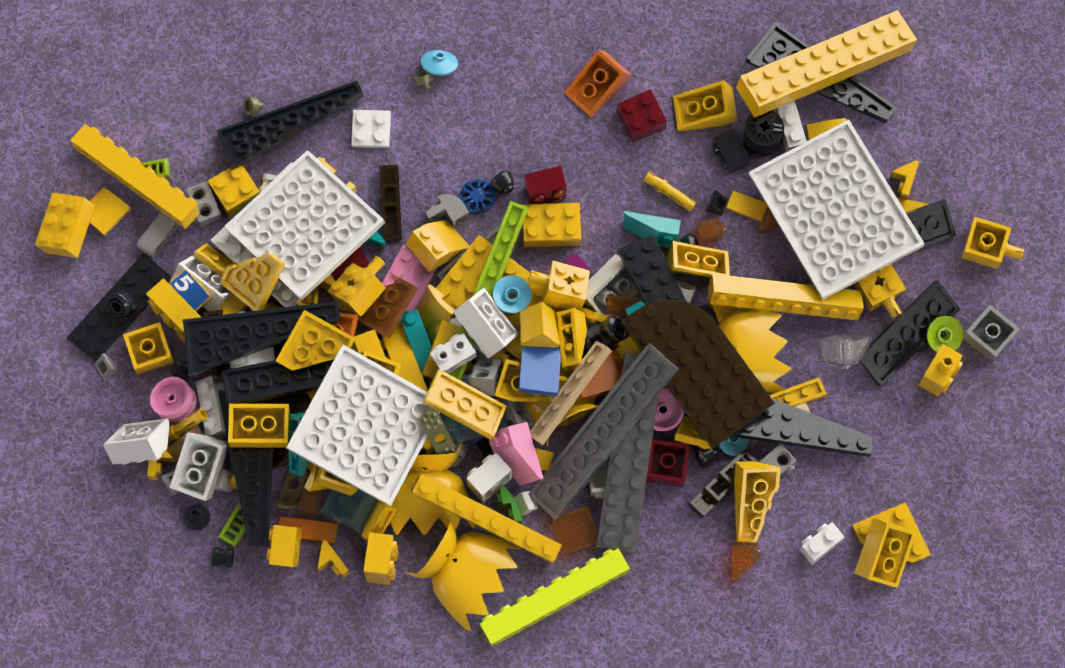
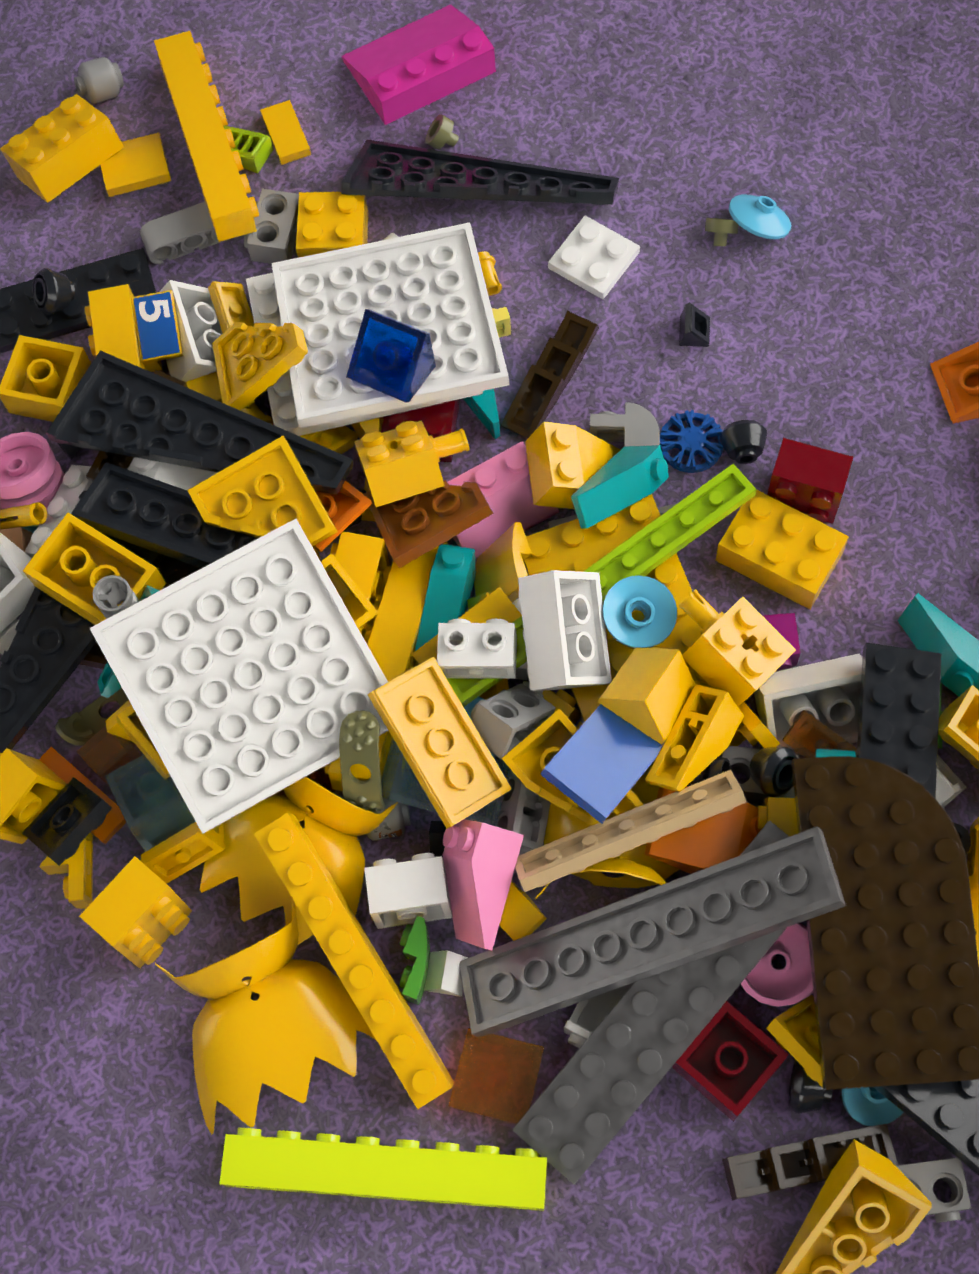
camera: 40 degrees right, 5 degrees down
(52, 176) = (99, 80): none -> light grey head
(170, 149) = (285, 132): none -> yellow tile
(212, 71) = (421, 62): none -> dark pink slope
(282, 425) = (111, 592): none -> light grey wheel
(317, 541) = (67, 821): none -> black plate
(324, 243) = (391, 356): none -> clear blue slope
(442, 138) = (694, 327): none -> black slope
(463, 238) = (620, 483): none -> teal slope

